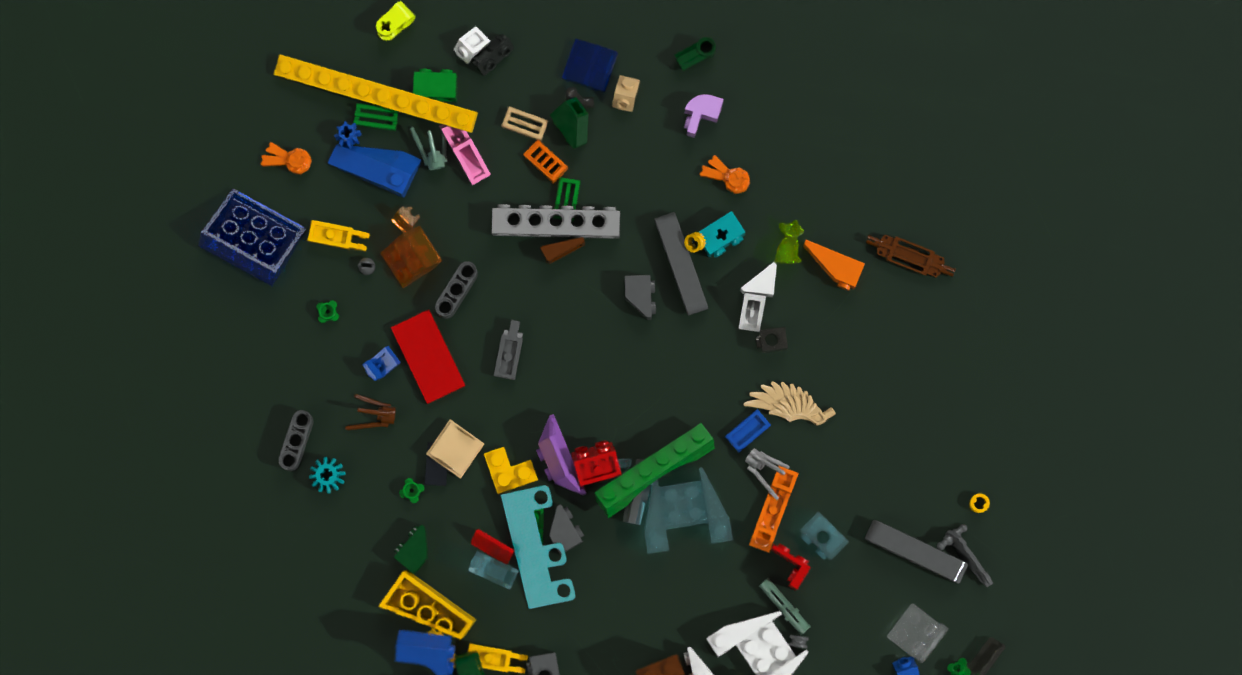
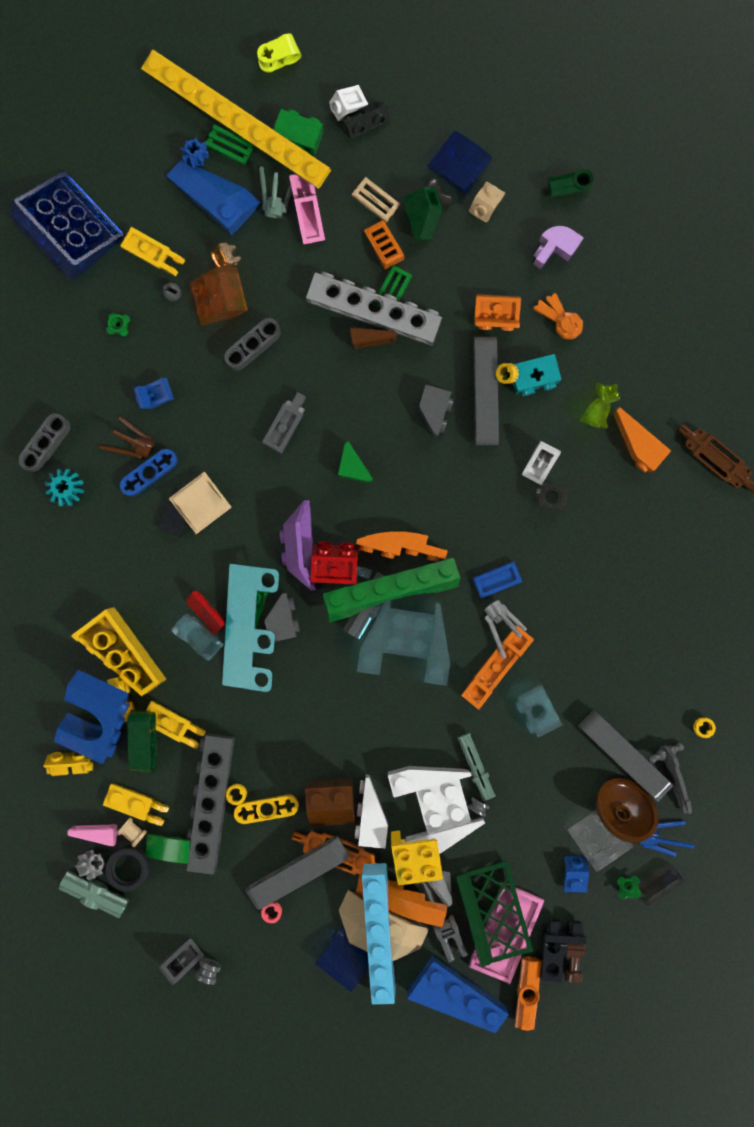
camera: 20 degrees right, 5 degrees up
(297, 160) = (135, 162): orange piece -> none
(405, 492) = (144, 536): green plate -> none
(413, 427) = (139, 470): none -> blue beam
(414, 551) = (126, 592): dark green slope -> none
(428, 356) = (203, 402): red tile -> none
(507, 476) = (241, 545): yellow plate -> none
(583, 371) = (352, 467): none -> green slope
(641, 428) = (392, 542): none -> orange slope
(668, 189) = (497, 312): none -> orange bracket
(763, 283) = (561, 437): white slope -> none
(789, 404) = (547, 566): tan animal -> none
(796, 576) = (497, 742): red bracket -> none
(932, 599) = (626, 810): none -> reddish brown dish
(962, 618) = (654, 839): none -> blue plant

